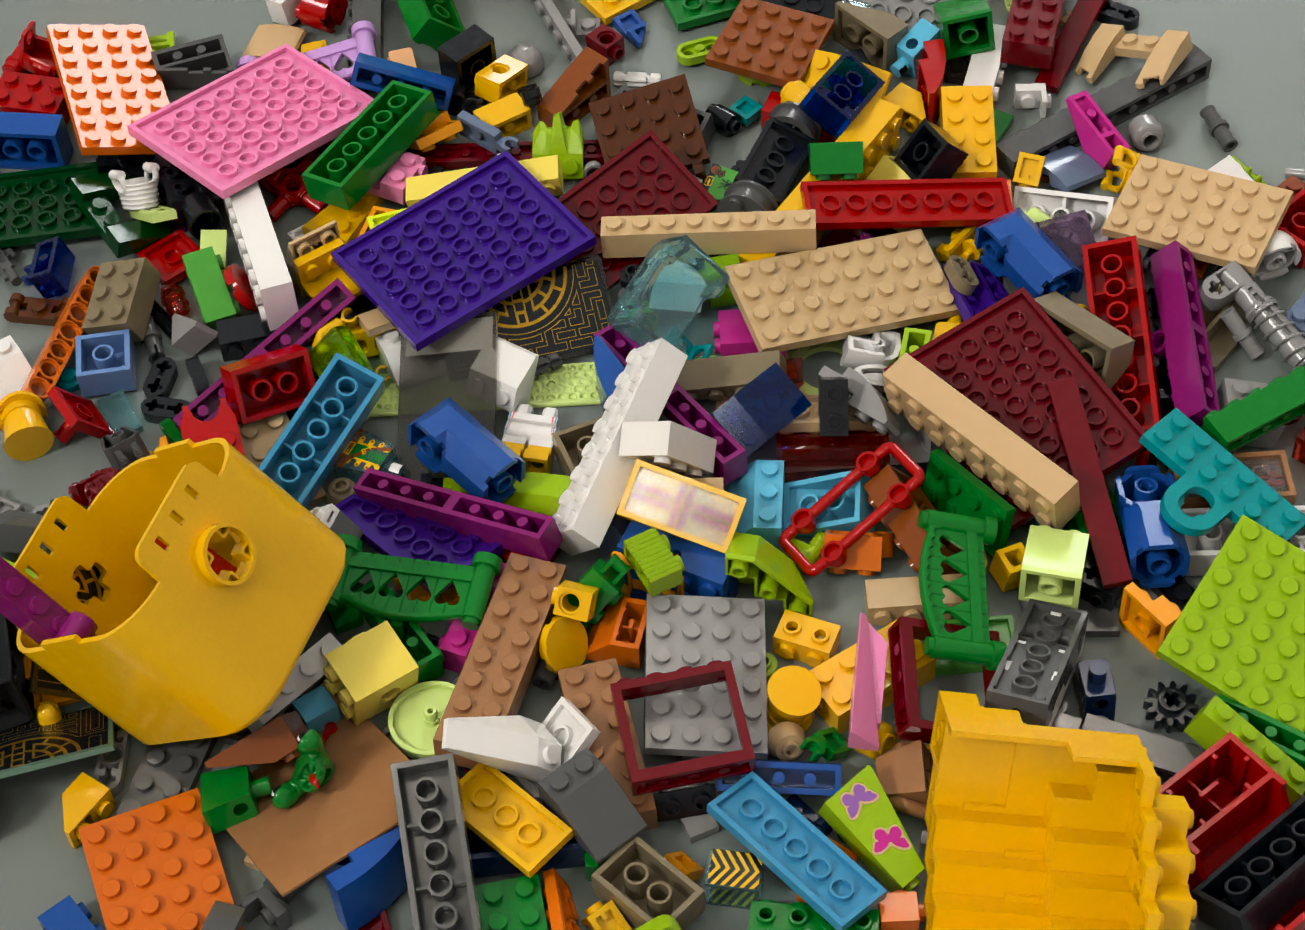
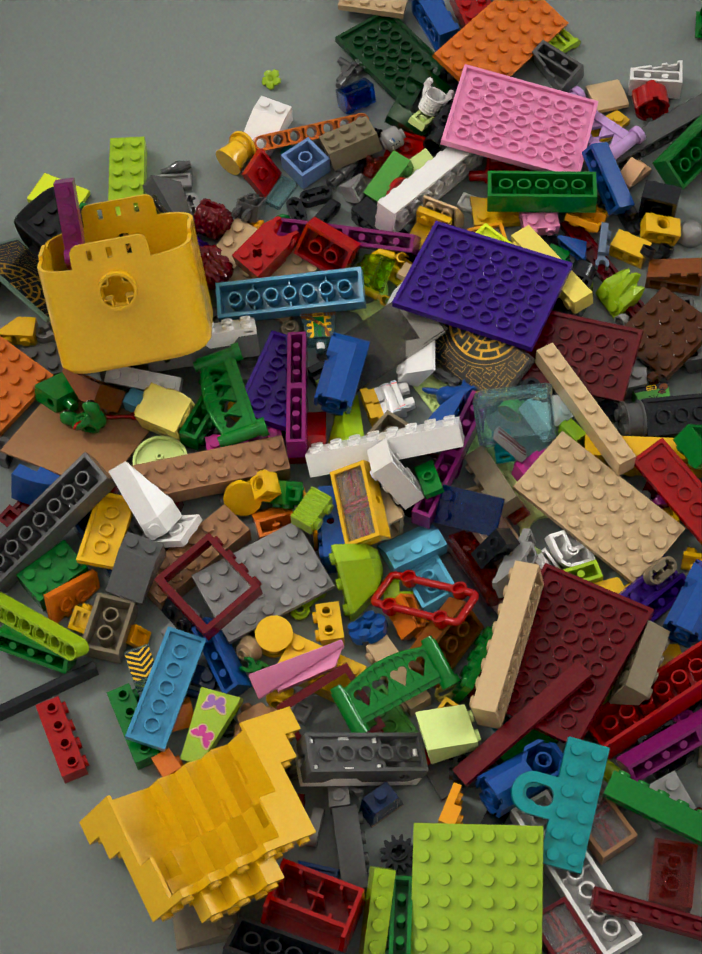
camera: 60 degrees right, 10 degrees up
(37, 310) = (327, 109): reddish brown plate -> none
(157, 253) = (392, 138): none -> light grey head
(463, 159) = (577, 247): none -> blue slope
(575, 369) = (444, 393): none -> blue animal
(696, 332) = (509, 444): none -> light grey tile
(703, 421) = (429, 479): none -> green plate
(830, 592) = (368, 628): none -> blue plate

